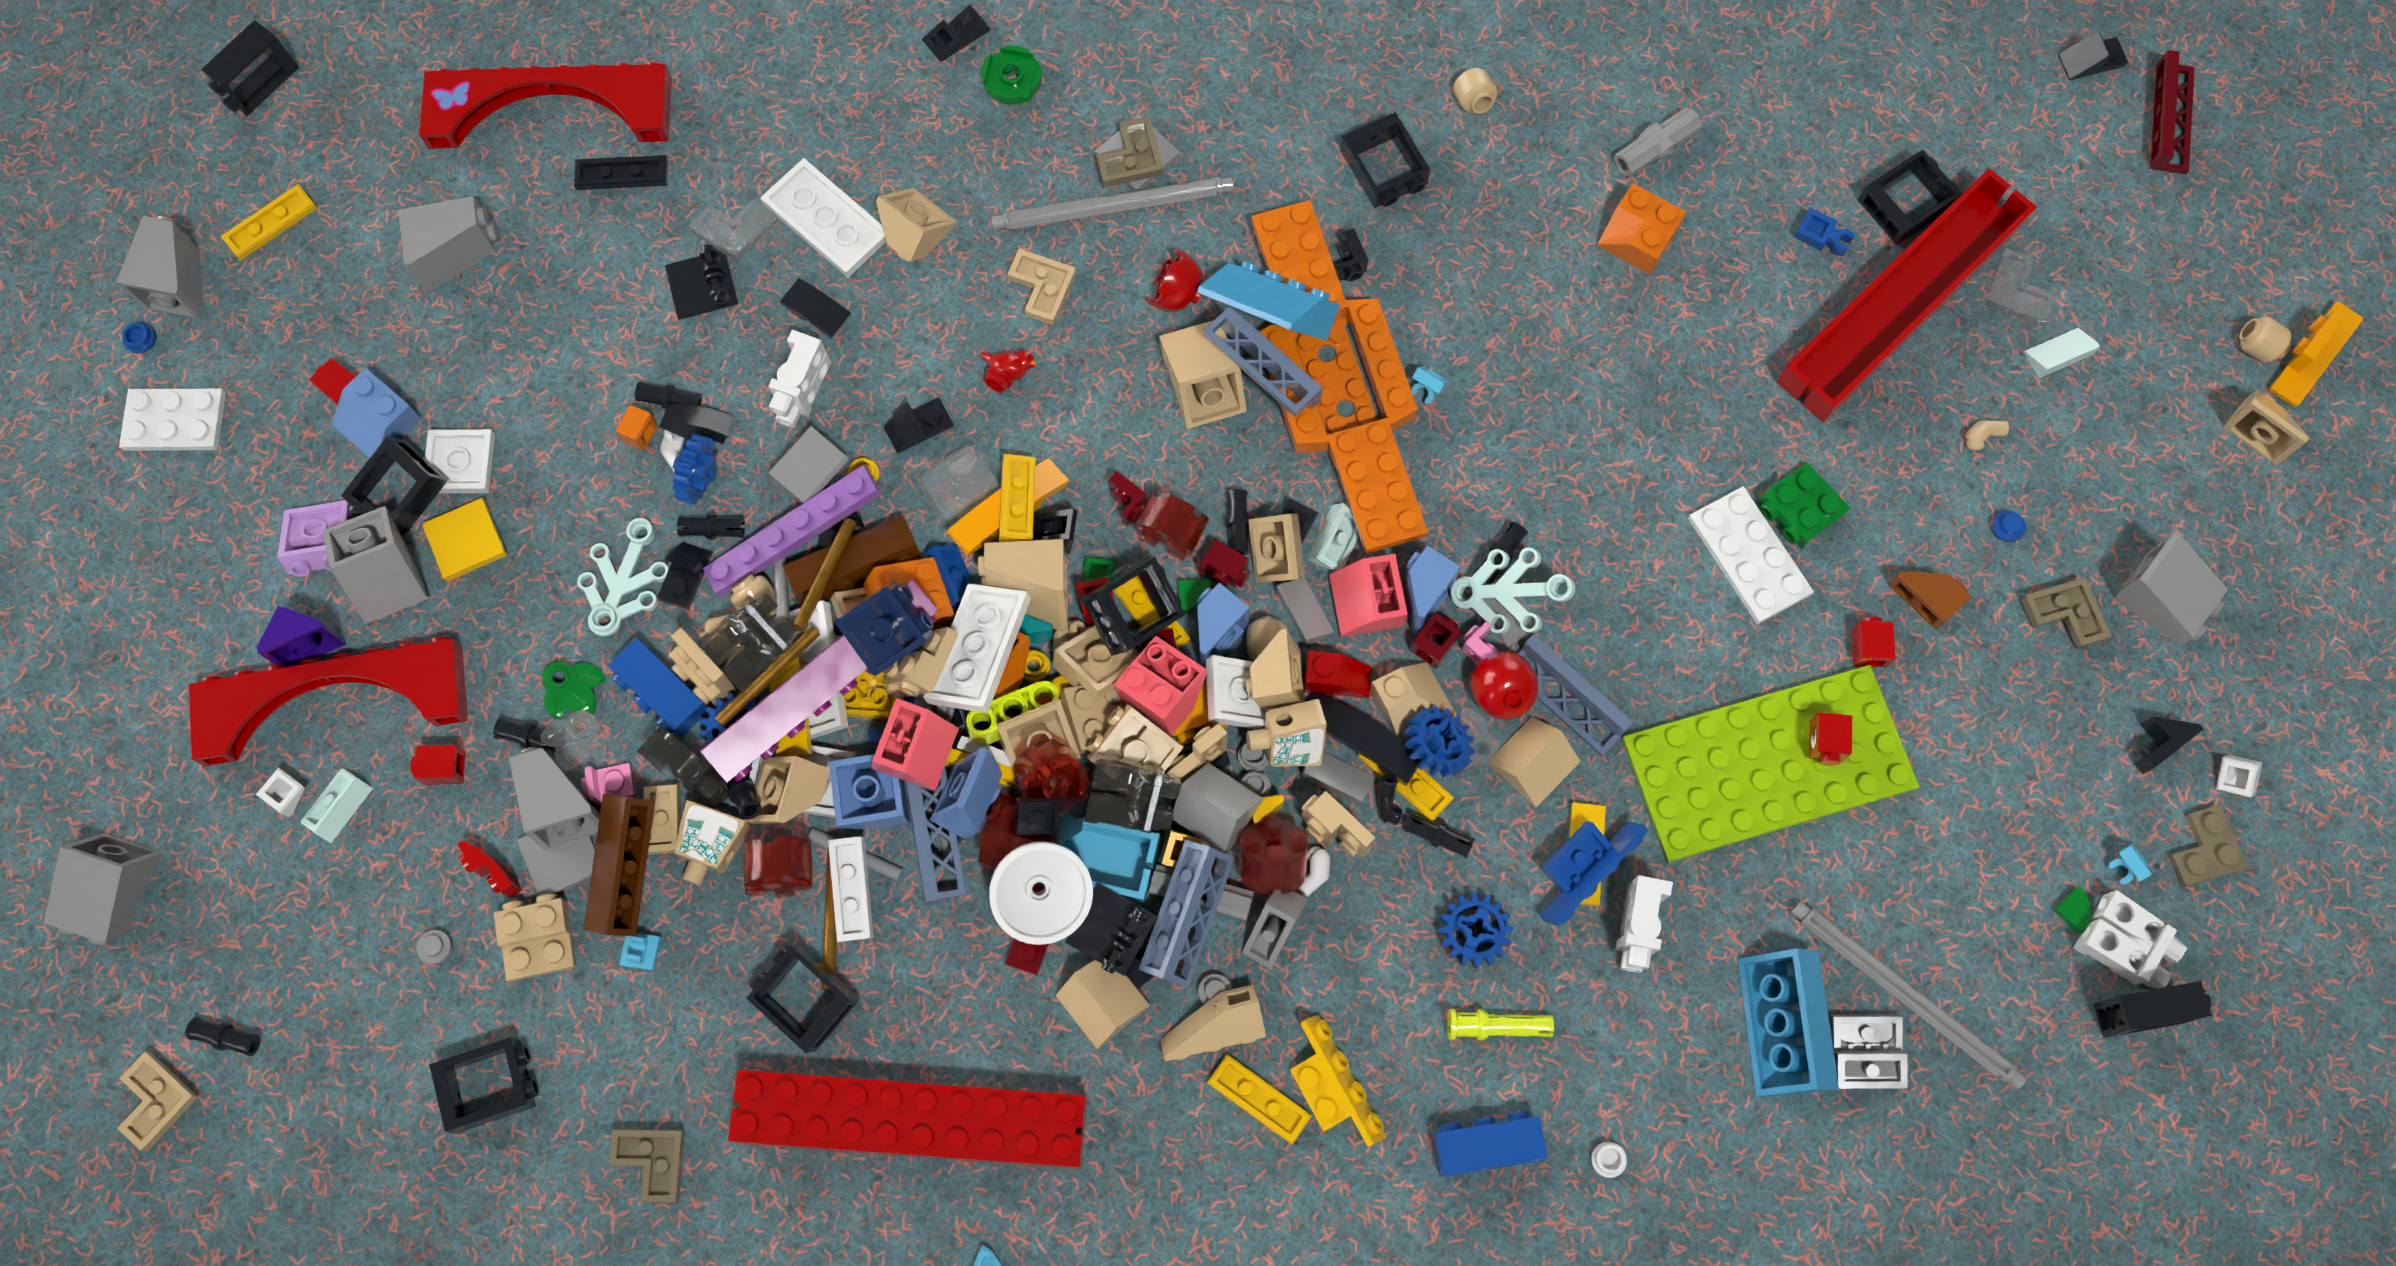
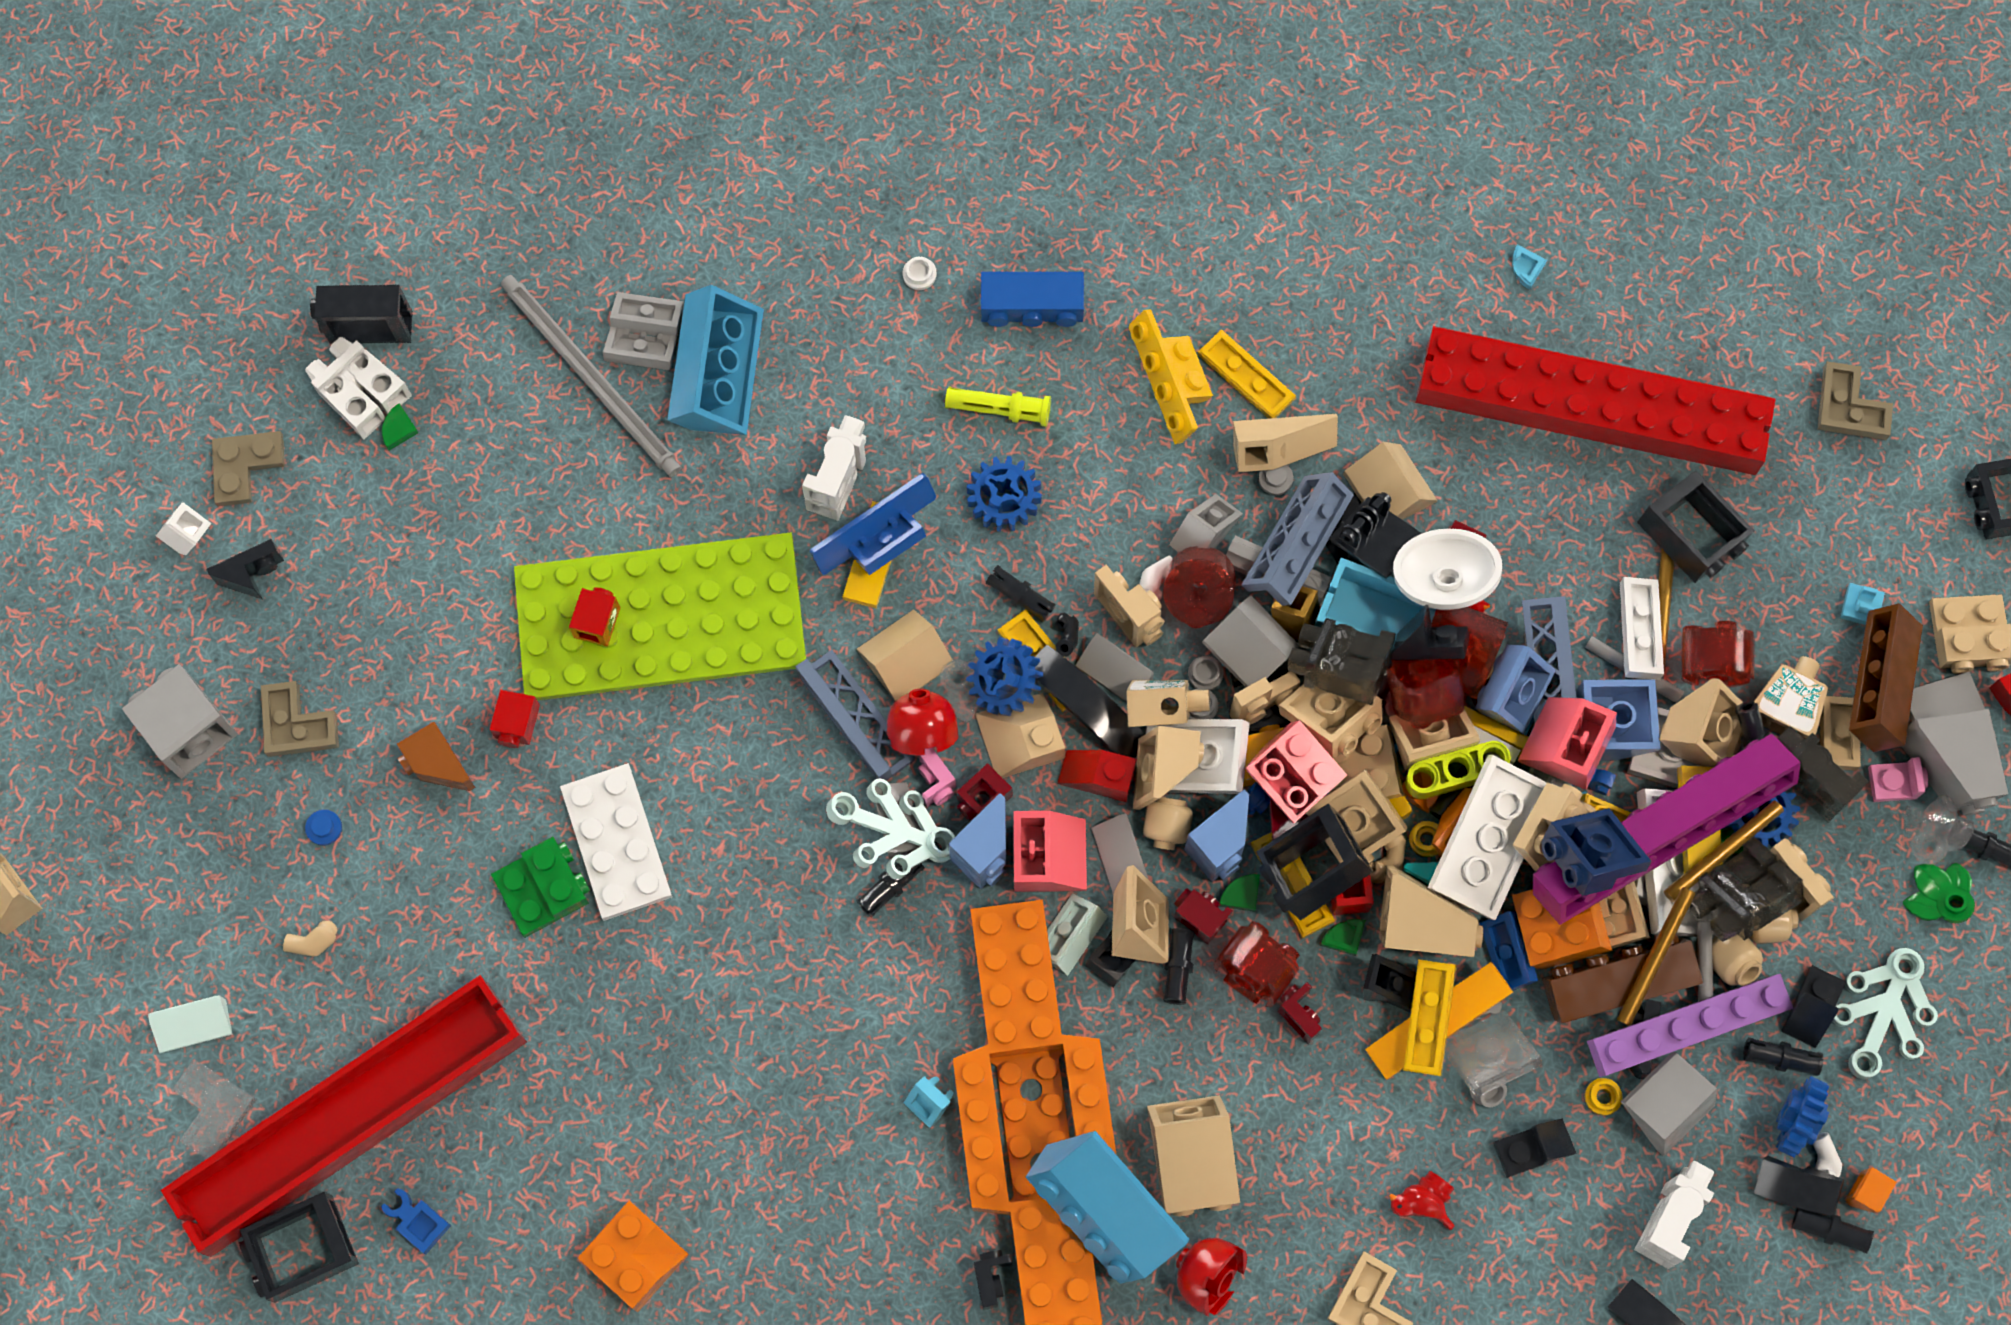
camera: 170 degrees left, 0 degrees up
(657, 688) = (1850, 873): blue brick -> none
(1266, 356) = (1114, 1133): sand blue fence -> none
(1269, 806) = (1193, 647): yellow slope -> none
(2133, 862) = (323, 458): medium azure tile -> none

